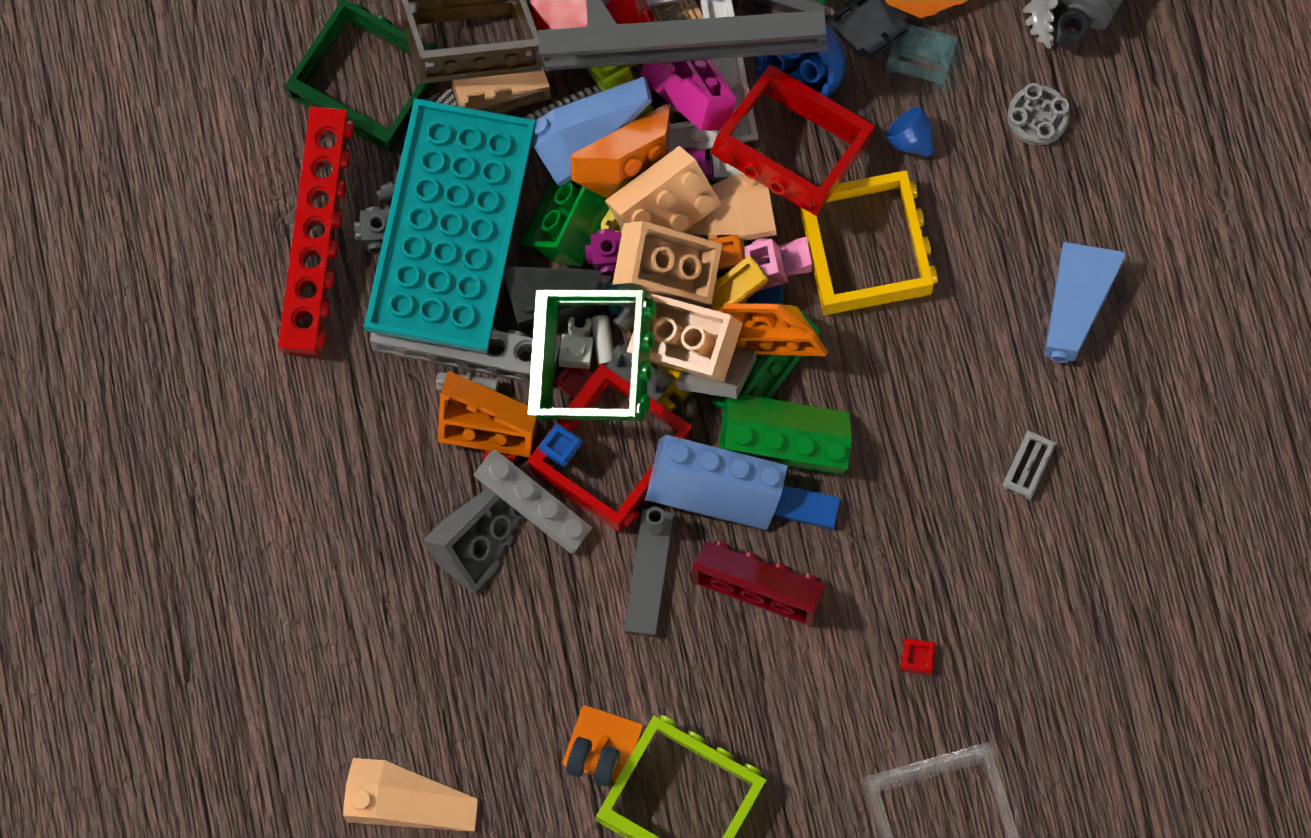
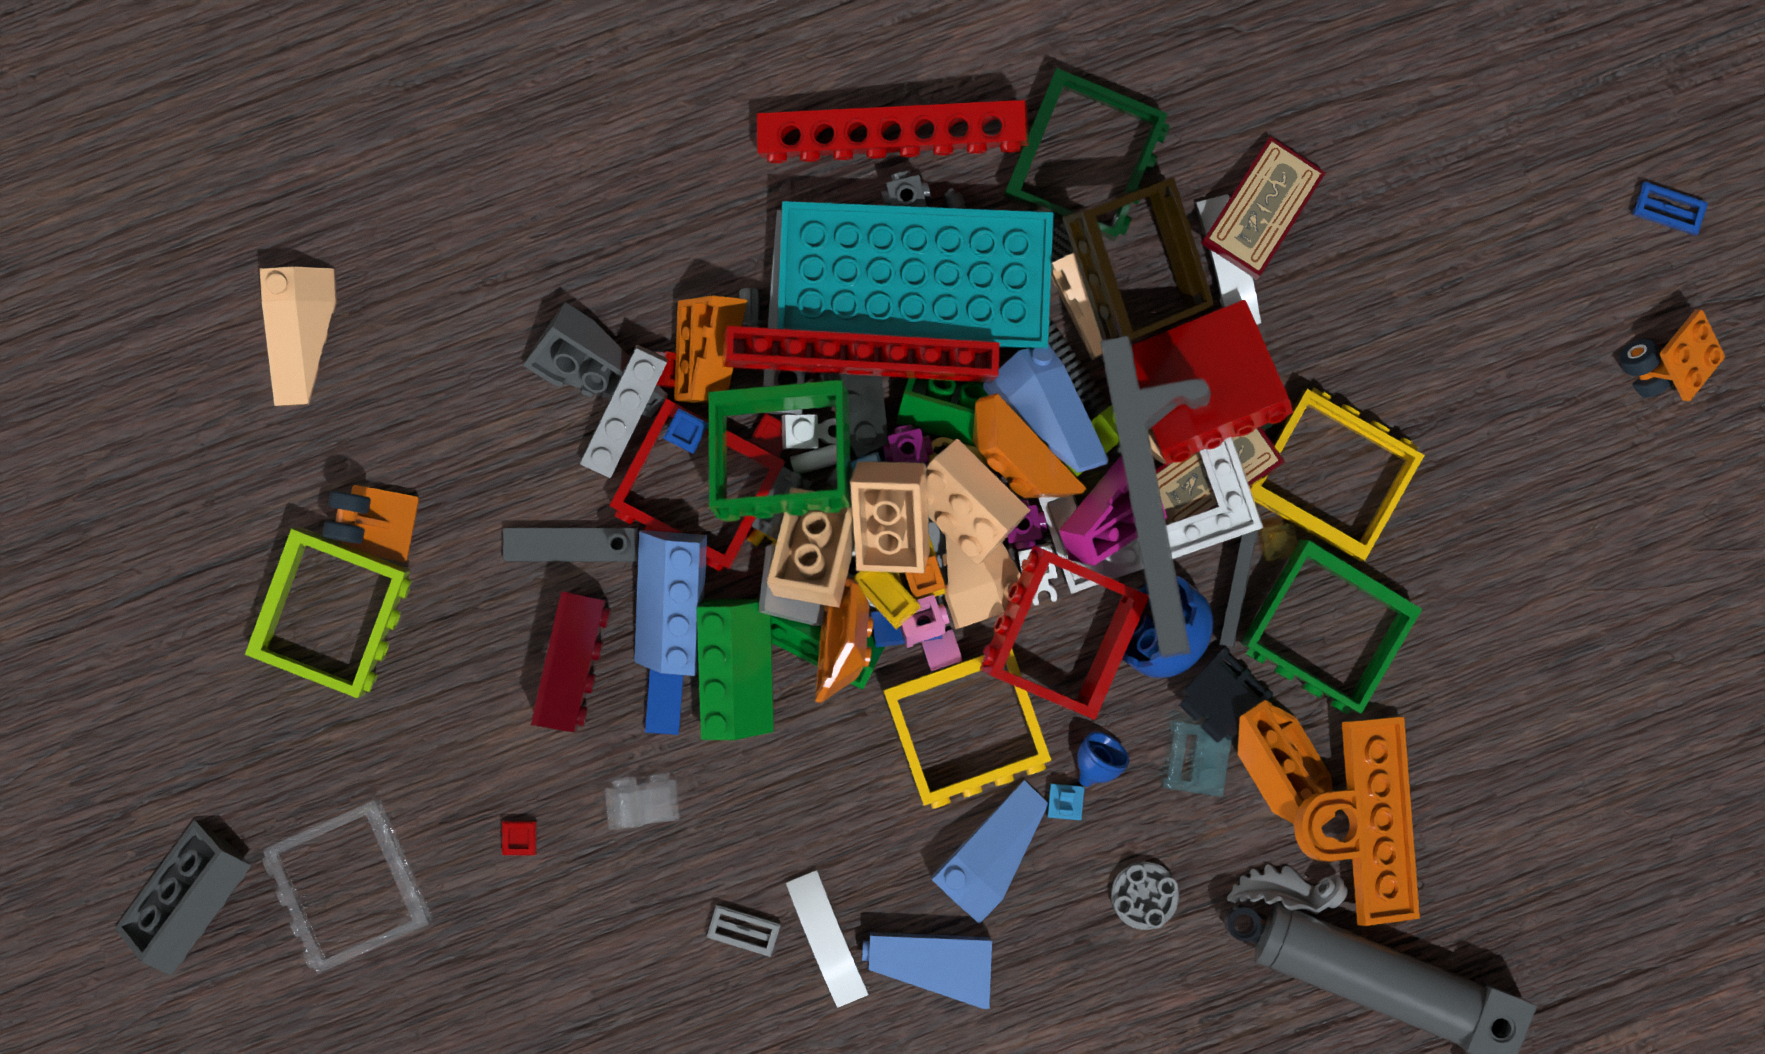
camera: 75 degrees right, 15 degrees up
(515, 275) = (860, 354): none -> red brick
(899, 534) = (642, 803): none -> clear brick
(945, 170) = (1065, 801): none -> dark azure tile
(990, 244) = (987, 861): none -> medium blue wedge
(1044, 390) = (826, 938): none -> white slope

